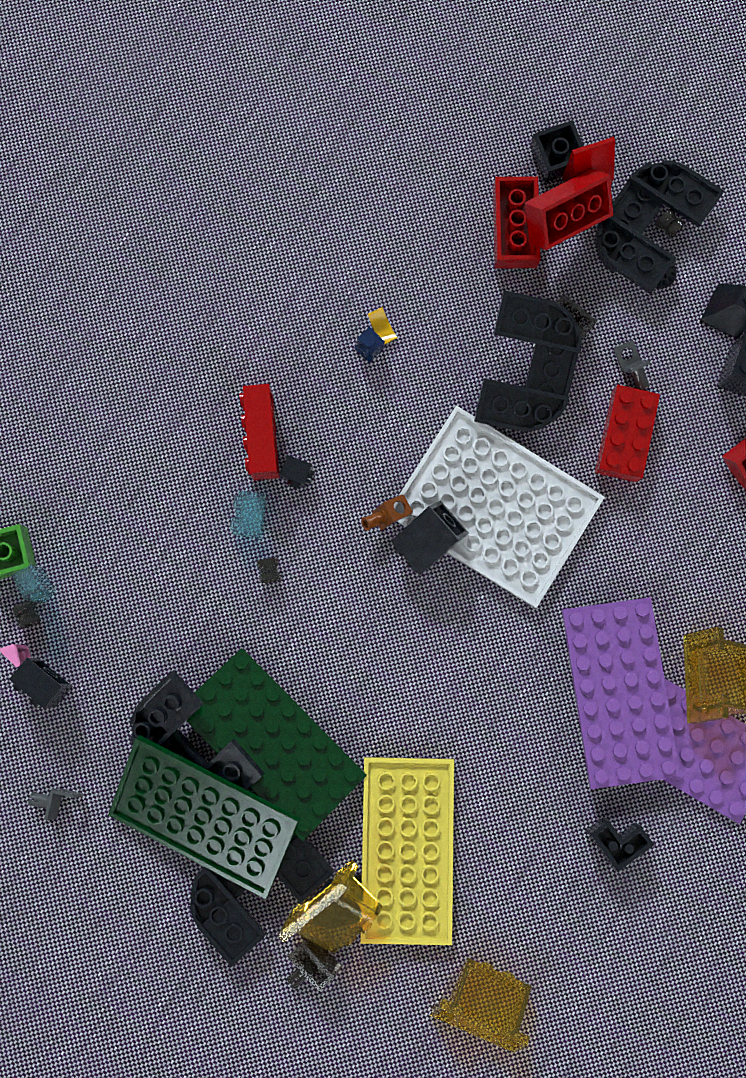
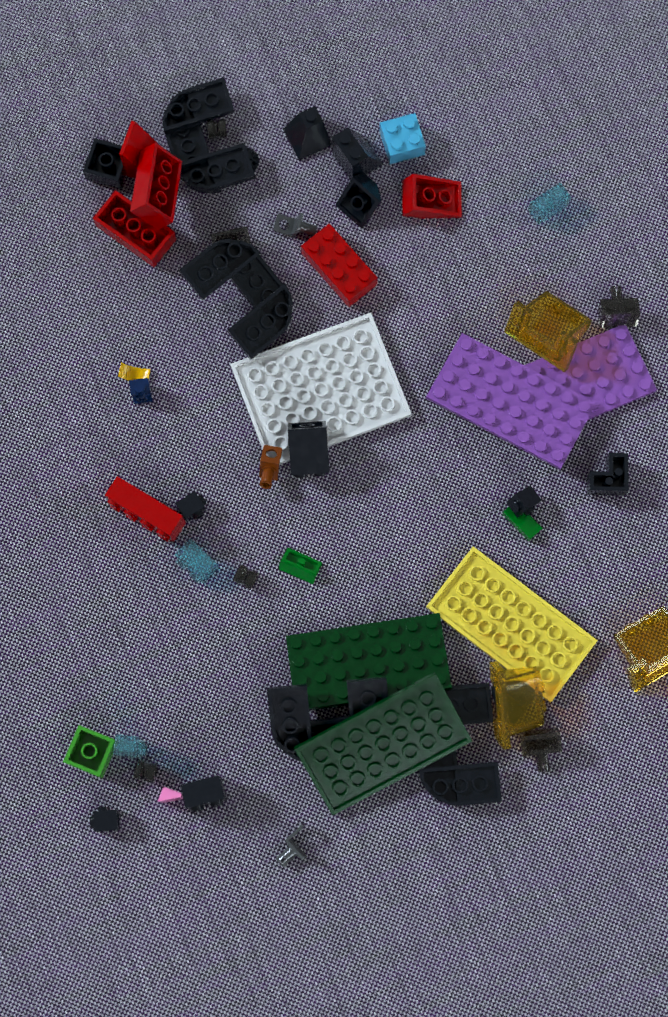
camera: 50 degrees left, 5 degrees down
(317, 611) = (300, 565): none -> green slope
(513, 787) = (525, 525): none -> green slope
(532, 777) = (524, 502): none -> black brick
(706, 405) = (359, 199): none -> black slope

